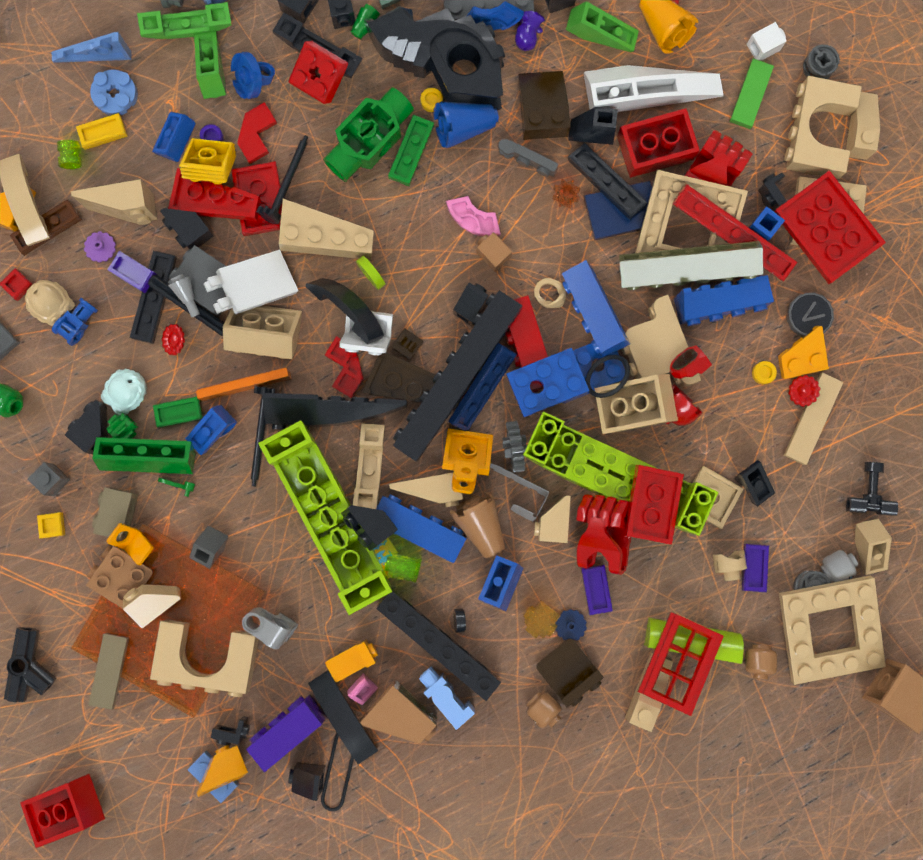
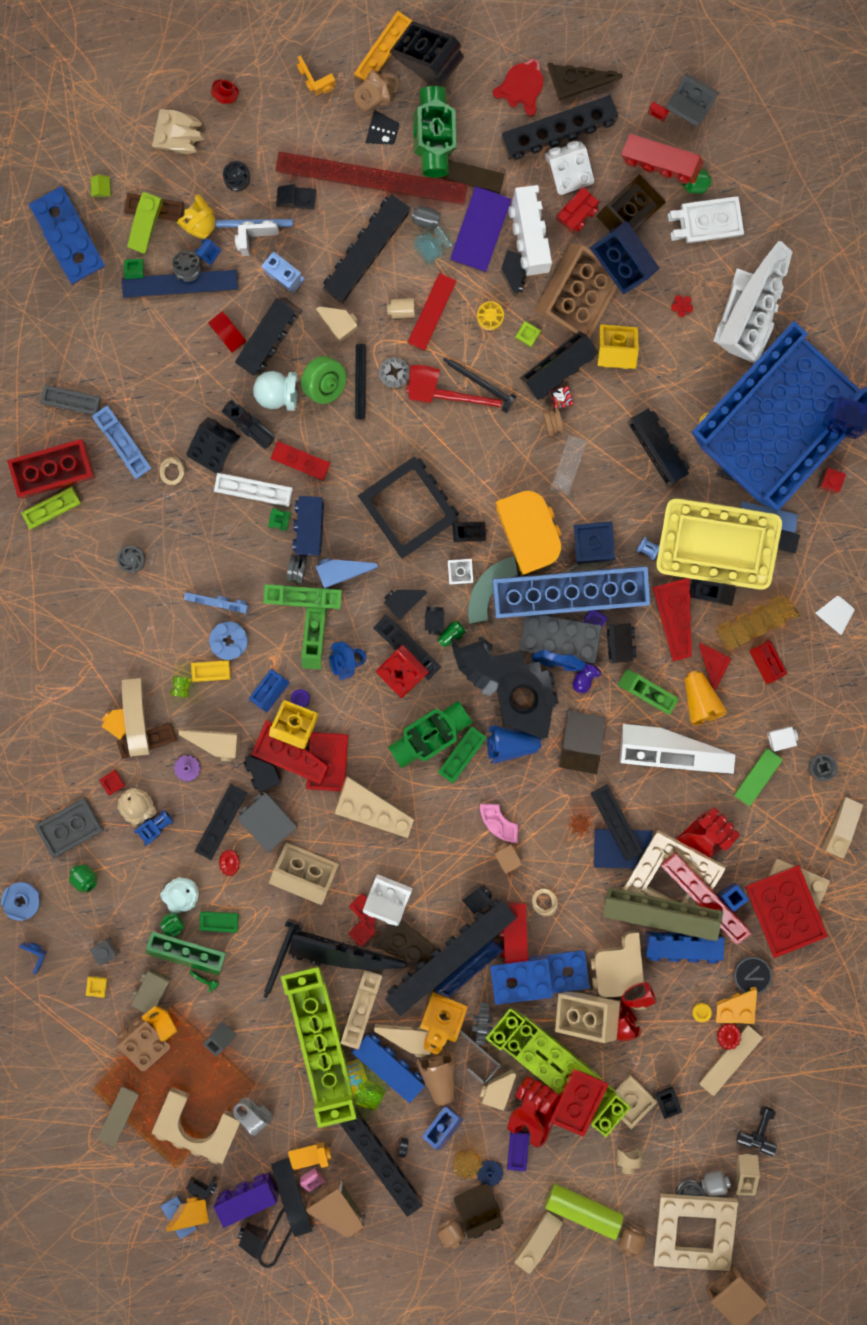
camera: 20 degrees right, 5 degrees up
(33, 675) = (56, 1102): black piece -> none
(62, 811) = (57, 1213): red slope -> none
(89, 426) = (147, 919): black slope -> none
(131, 271) = (209, 798): tile -> none
(149, 602) = (164, 1072): tan slope -> none
(183, 289) = (248, 829): light grey cone -> none
(204, 316) = (246, 836): black axle -> none
(211, 427) = (242, 944): blue plate -> none
(243, 384) = (277, 915): orange tile -> none
(252, 283) = (306, 837): white tile -> none
(254, 123) = (338, 696): red tile -> none
(272, 215) = (335, 782): black piece -> none
(349, 303) = (378, 874): black slope -> none
(369, 524) = (352, 1060): black slope -> none
(370, 272) = (402, 850): lime piece -> none
(407, 344) = (417, 914): dark brown tile -> none
(429, 98) = (490, 714): yellow tile -> none
(445, 698) = (375, 1206): light blue hips -> none
(527, 157) = (554, 785): dark grey hinge -> none
(594, 126) = (617, 775): black slope -> none
(595, 309) = (577, 929): brick -> none
(619, 387) = (579, 1000): black tyre -> none
(658, 143) = (666, 803): red brick -> none
(700, 674) = (553, 1216): red piece -> none
(756, 574) = (650, 1166): dark purple tile -> none
(770, 193) = (748, 870): black bracket -> none
(805, 152) = (785, 839): tan arch -> none

